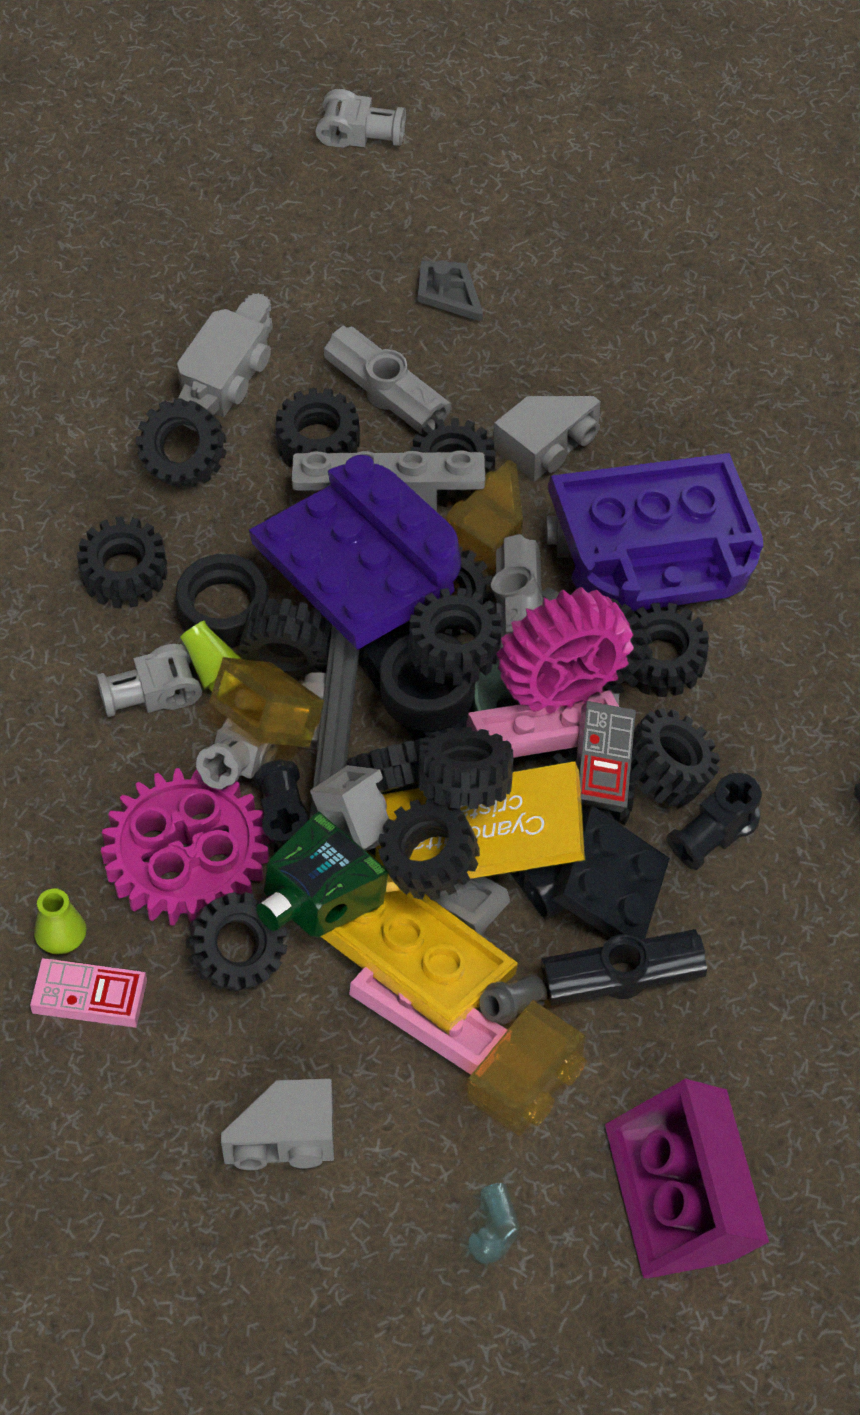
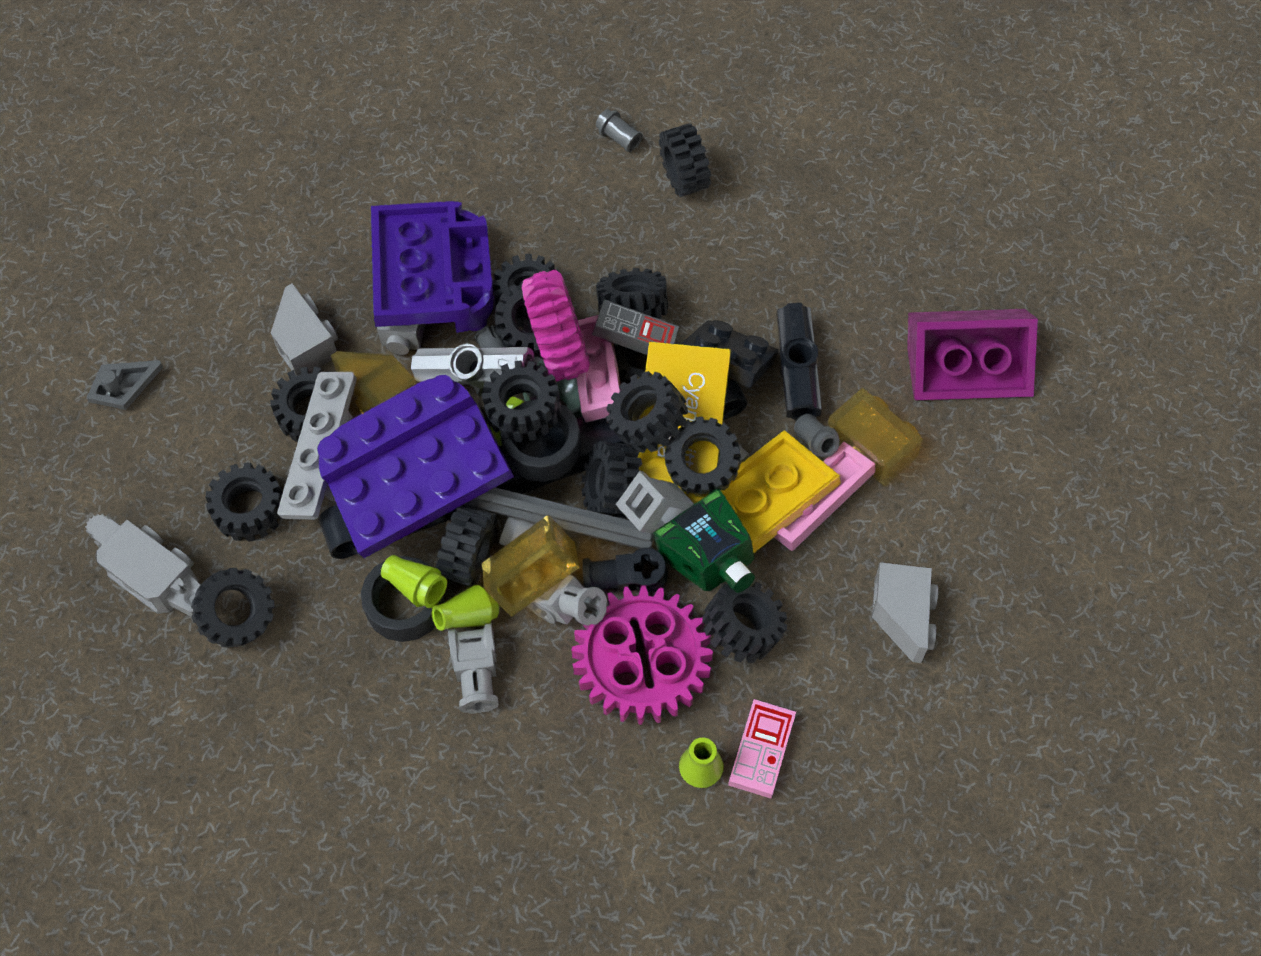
camera: 80 degrees left, 5 degrees up
(118, 540) = (325, 657): black tyre -> none
(224, 595) = (416, 581): none -> lime cone
(386, 378) = (189, 450): light grey piece -> none
(500, 1228) = (993, 477): clear light blue arm -> none
(722, 819) = (686, 281): black connector -> none

